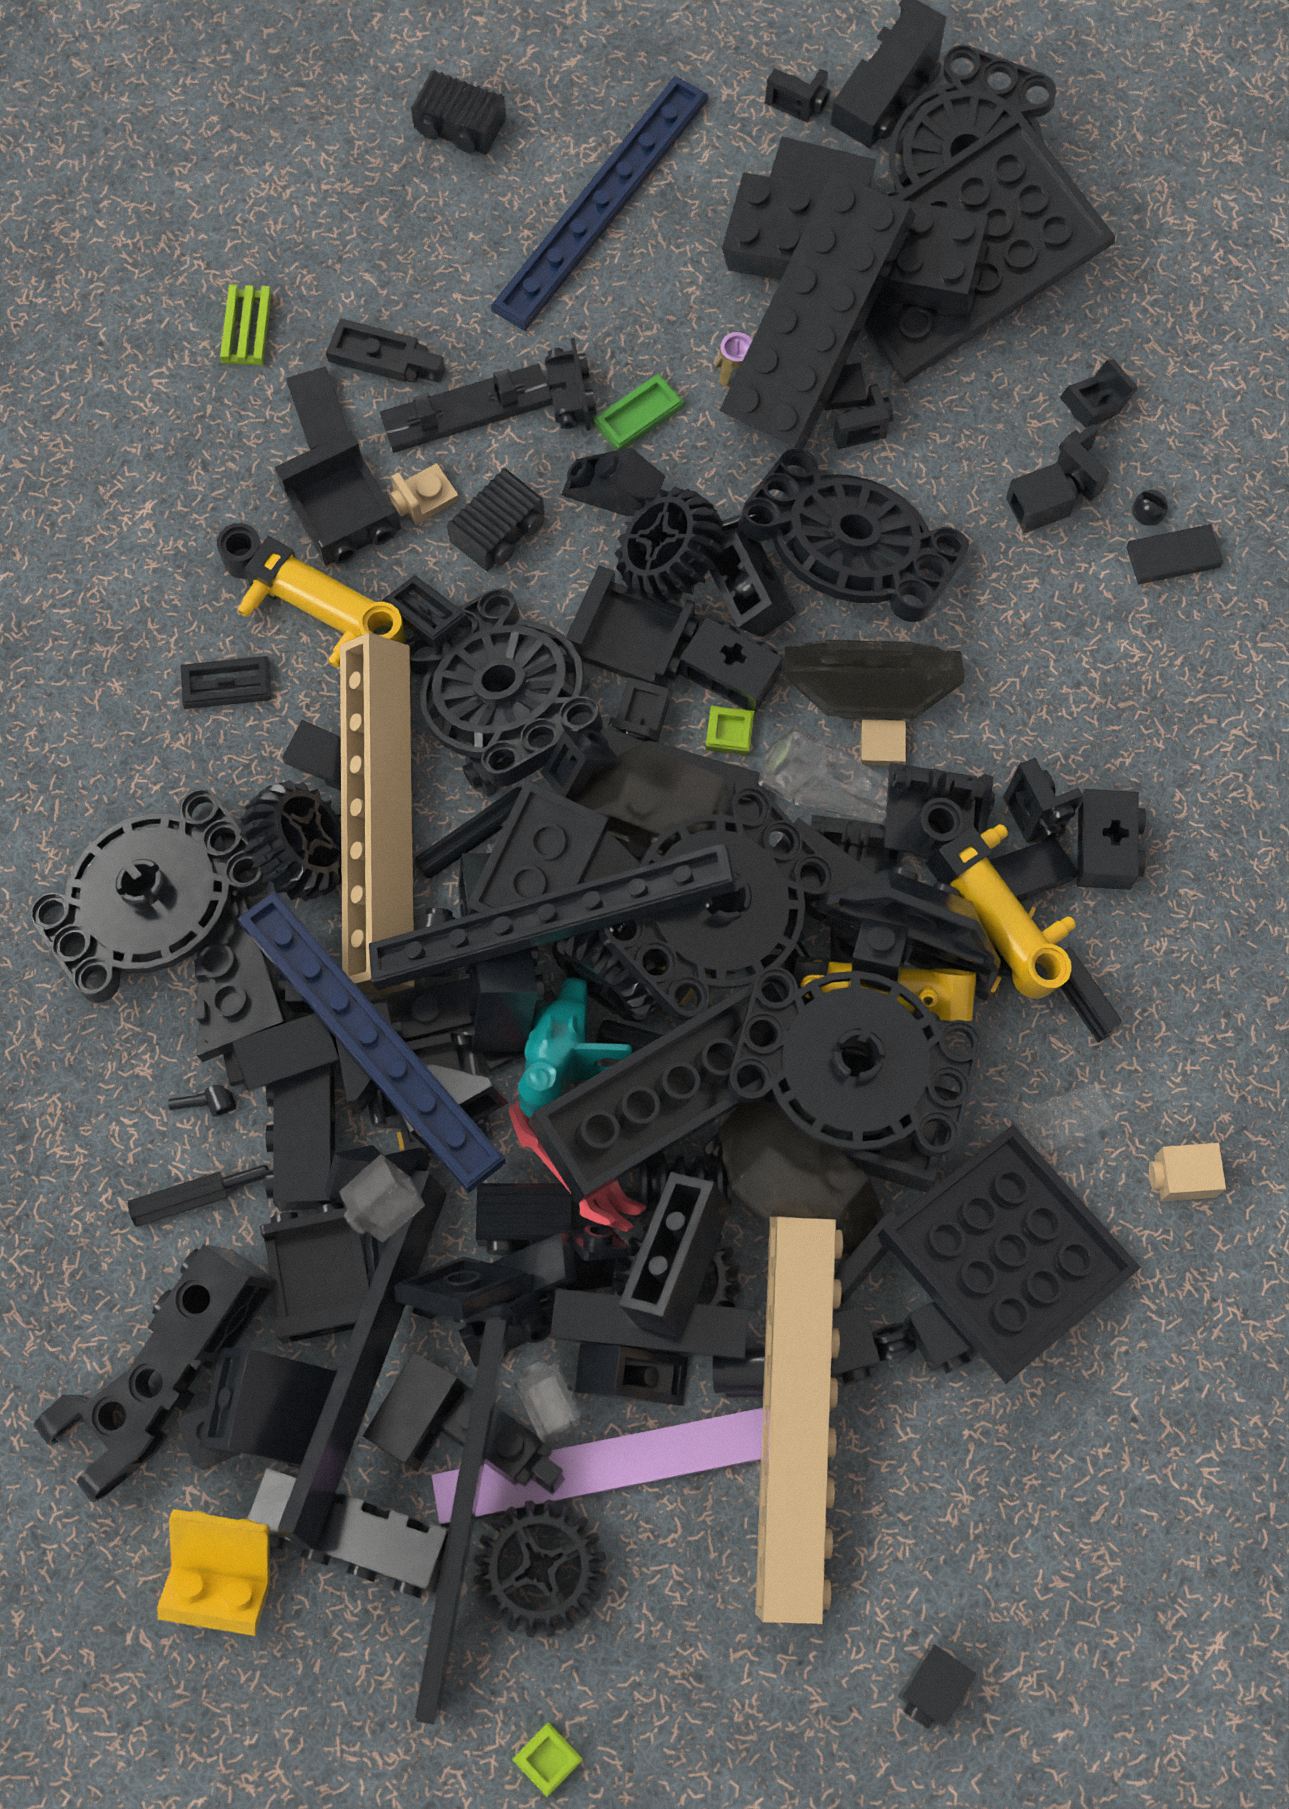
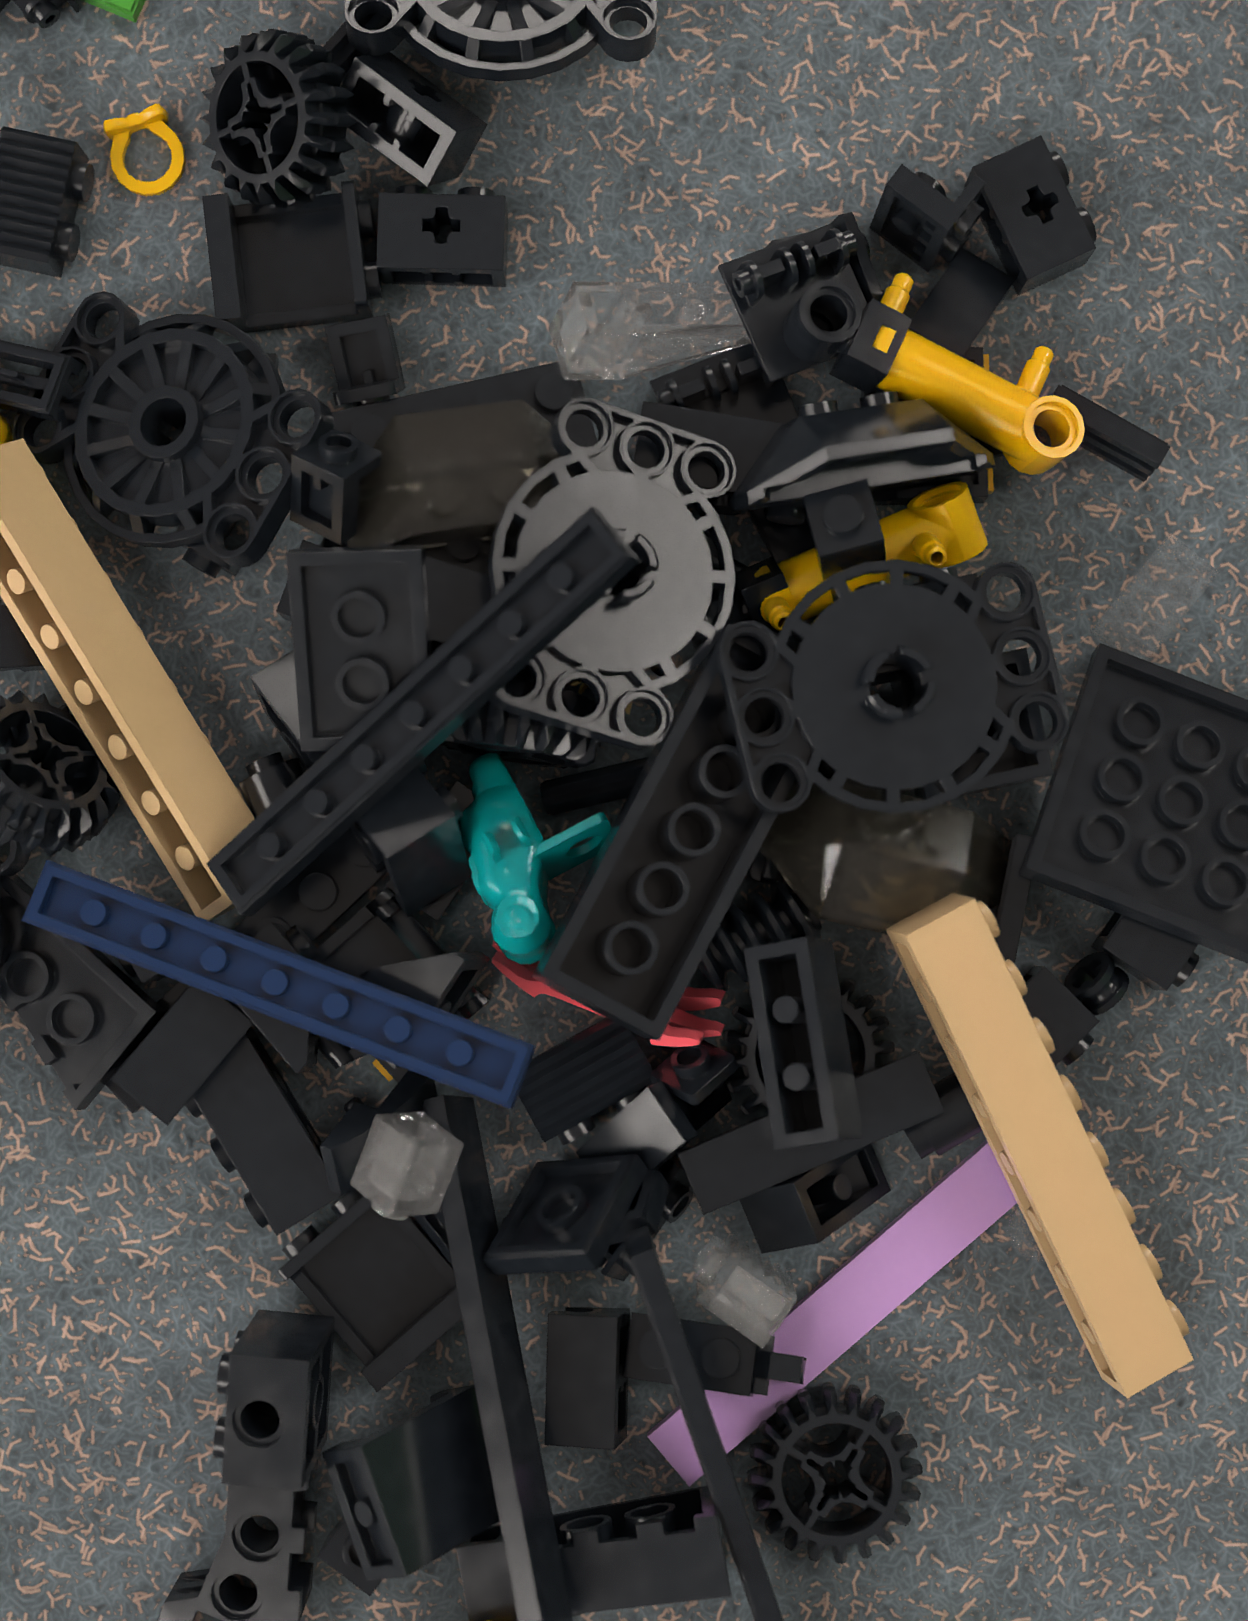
camera: 30 degrees left, 15 degrees up
(189, 1195) = (167, 1273): black axle -> none
(216, 1097) = (130, 1139): black hand -> none
(466, 836) = (243, 636): black axle -> none
(572, 508) = (120, 132): none -> yellow piece
(613, 481) = (151, 63): black slope -> none
(729, 730) = (487, 325): lime tile -> none
(873, 676) = (631, 156): clear smoke wedge -> none
(882, 742) = (686, 237): tan tile -> none

